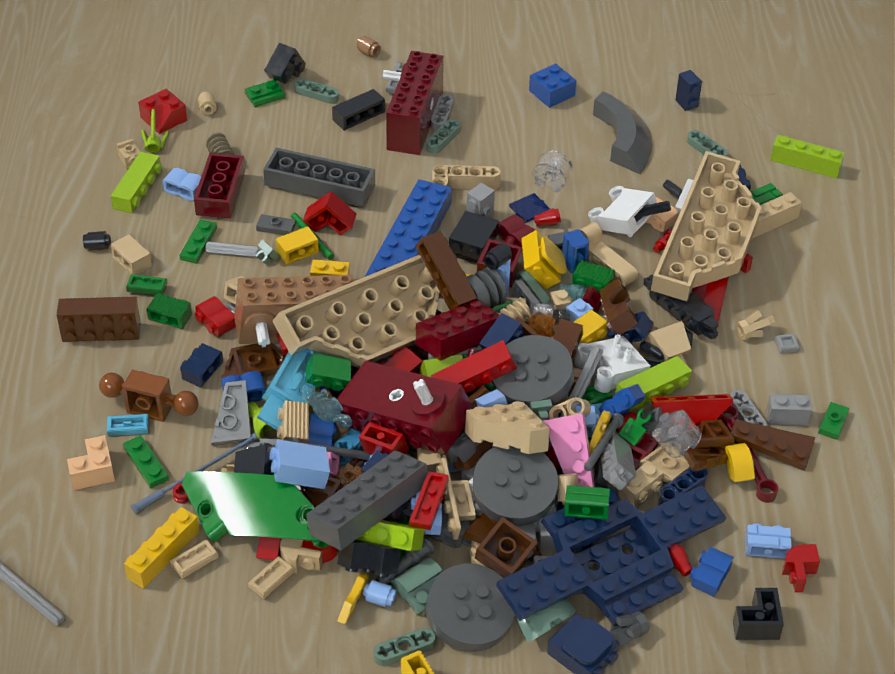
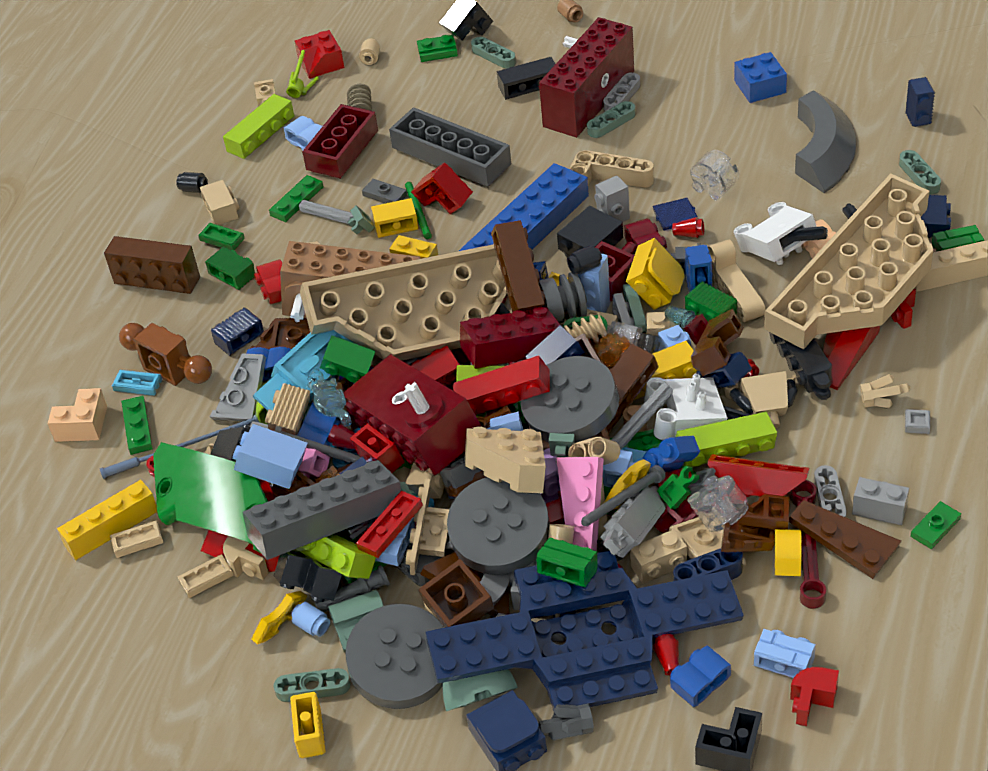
camera: 25 degrees right, 0 degrees up
(347, 438) = (340, 437): none -> dark red cone

